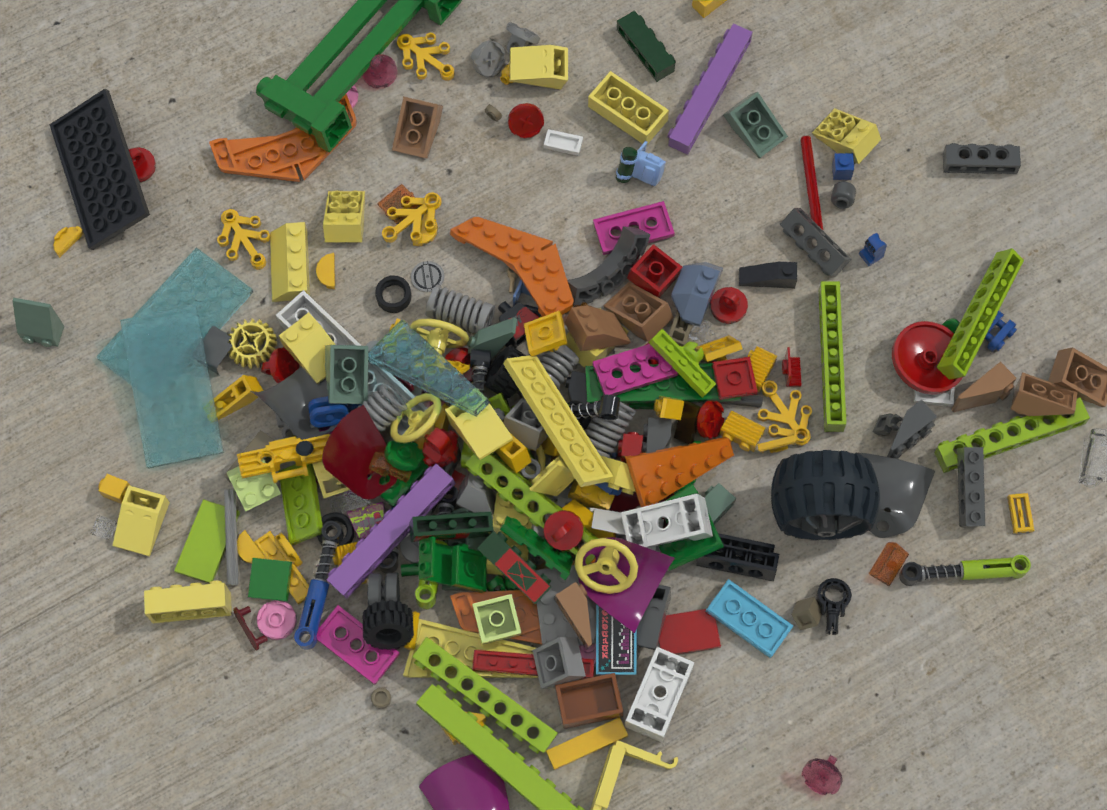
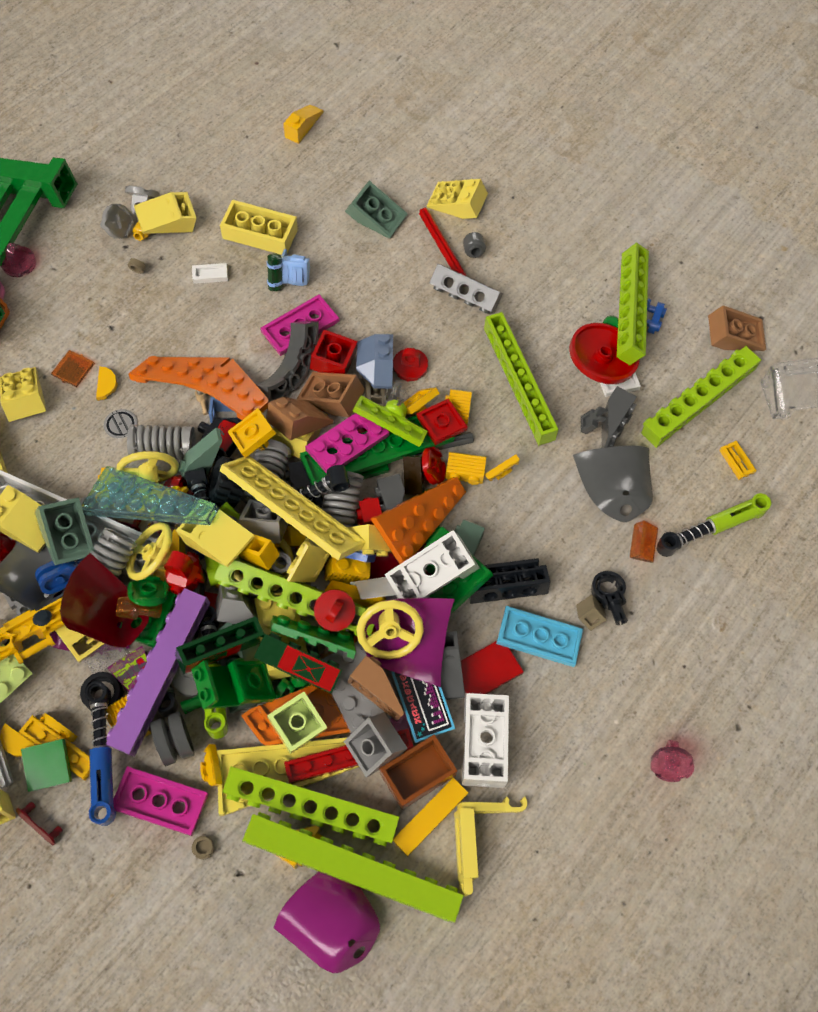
camera: 25 degrees left, 5 degrees down
(276, 619) = (66, 805): bright pink tile -> none
(301, 506) = (58, 678): lime tile -> none
(326, 270) = (18, 447): yellow tile -> none
(387, 624) = (185, 768): black tyre -> none
(389, 281) = (85, 437): black tyre -> none
(413, 216) = (101, 357): yellow plant -> none
(416, 127) = (68, 296): medium nougat slope -> none
(424, 54) = (38, 231): yellow plant -> none
(525, 120) = (169, 262): red tile -> none
(646, 46) = (256, 175): dark green brick -> none
(669, 407) = (392, 464): yellow slope -> none
(709, 89) = (325, 195): medium lavender brick -> none
(769, 275) = (438, 327): black slope -> none
(786, 416) = (498, 442): yellow plant -> none
(791, 370) = (488, 400): red piece -> none
(825, 495) = (569, 494): black wheel -> none
(843, 166) = (464, 222): blue brick -> none
(873, 249) = (518, 280): blue leg -> none
(971, 486) = (689, 448): dark grey brick -> none
(973, 164) = (577, 185): dark grey brick -> none
(987, 390) = (670, 358): medium nougat slope -> none
(1040, 397) = (714, 355): medium nougat slope -> none

